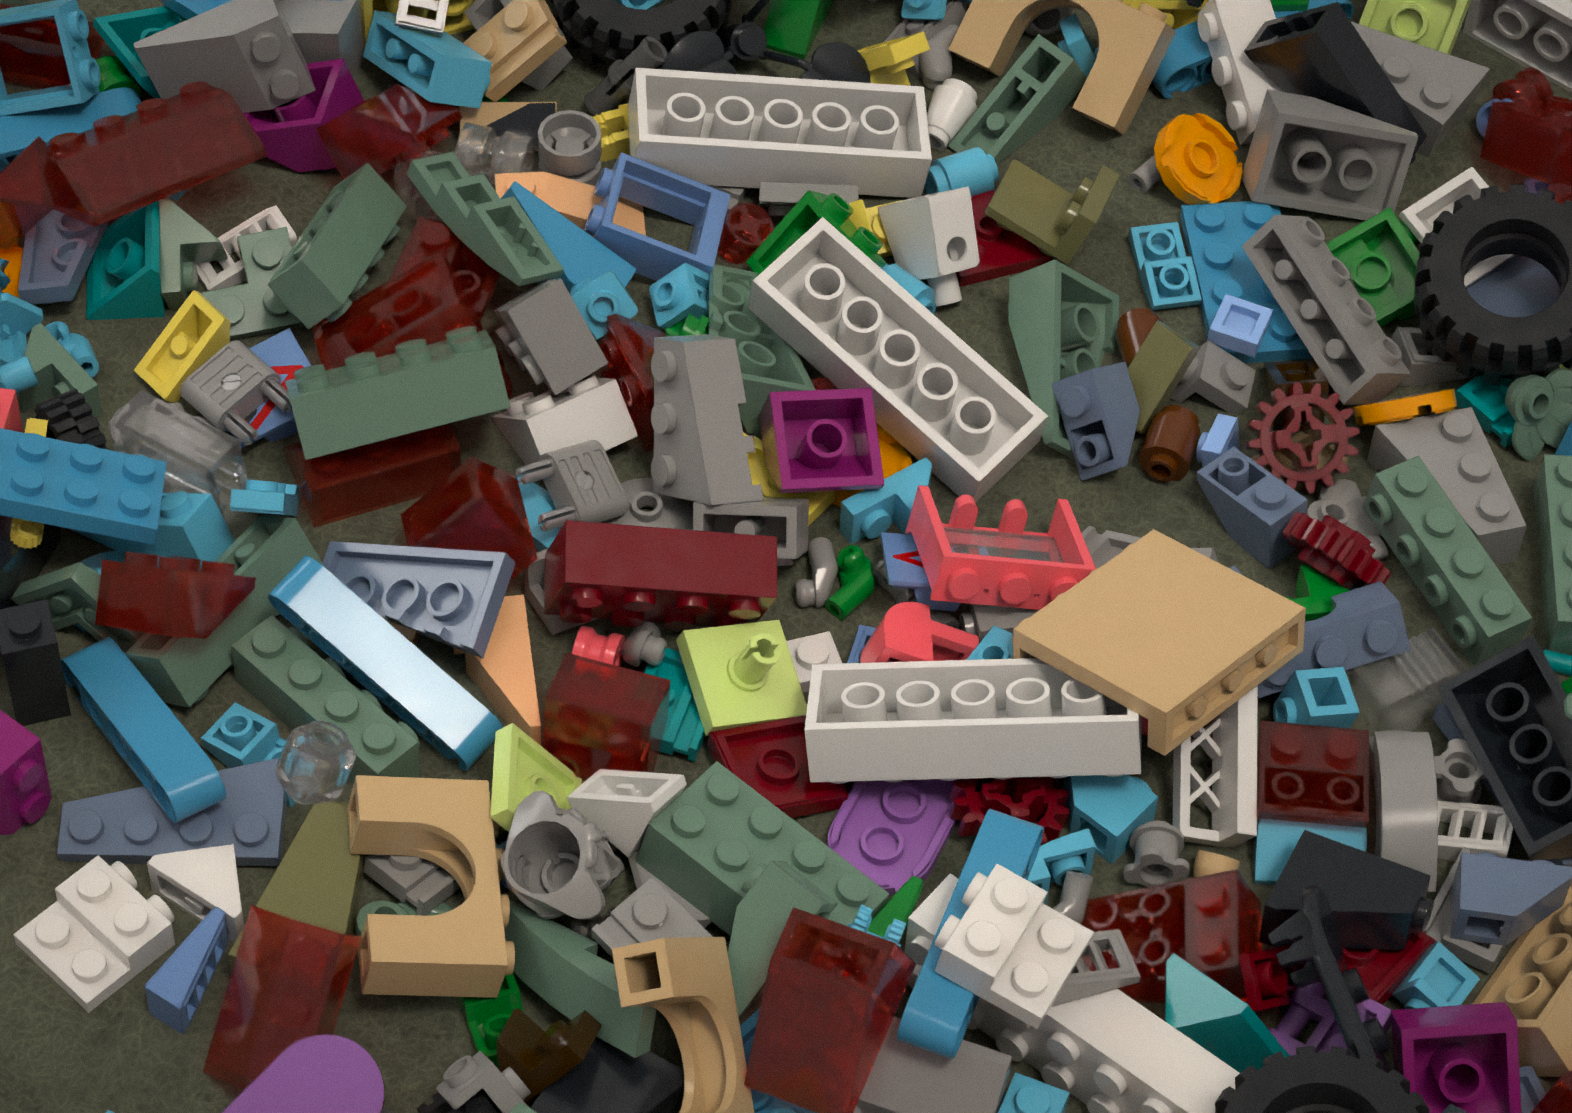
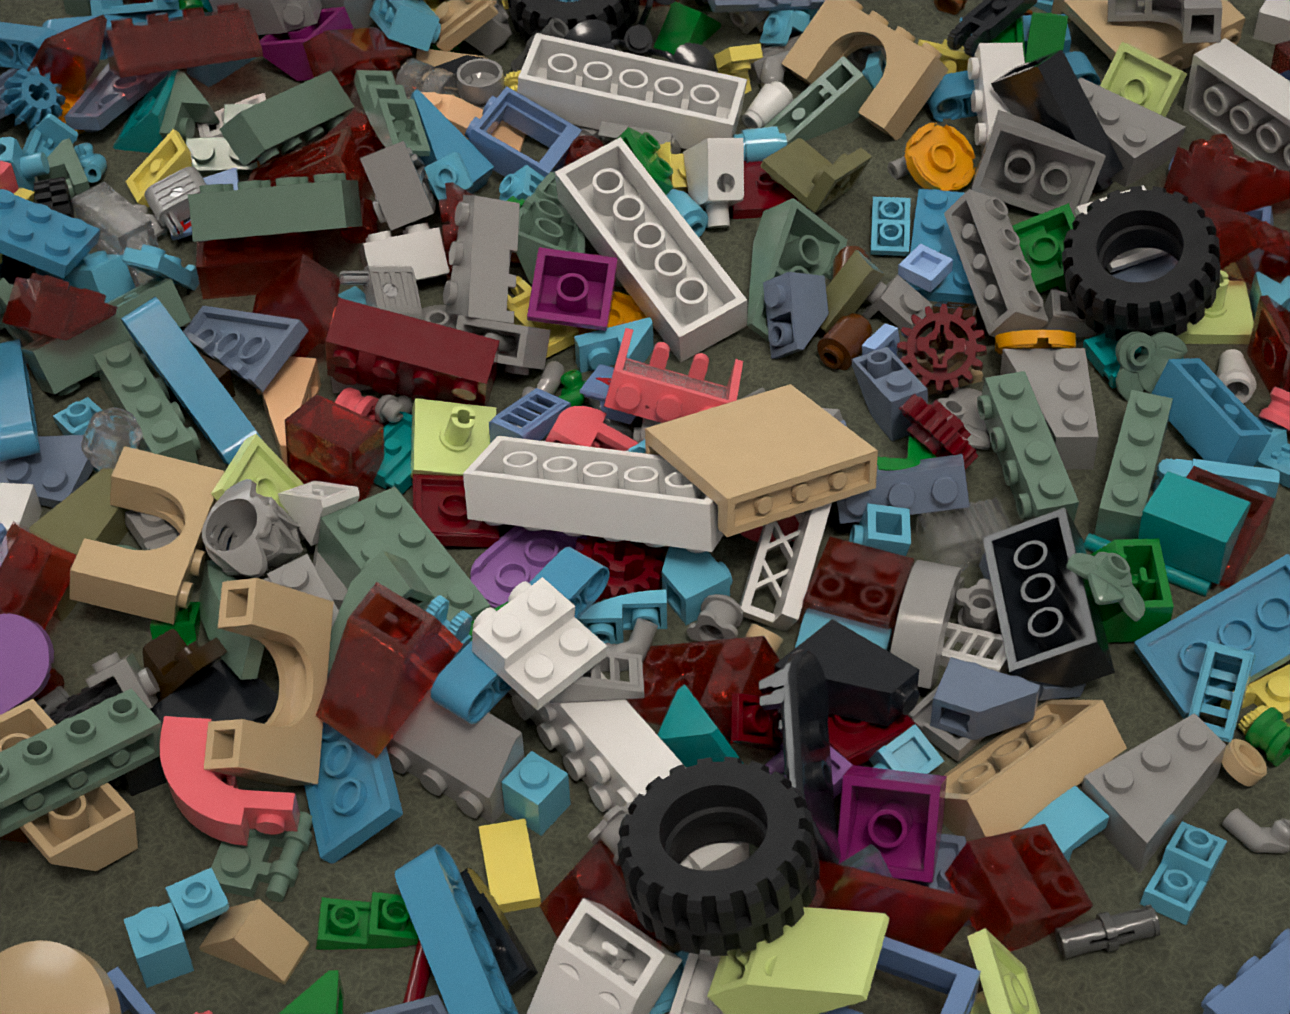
camera: 20 degrees right, 5 degrees down
(804, 652) = (506, 421): none -> medium blue slope

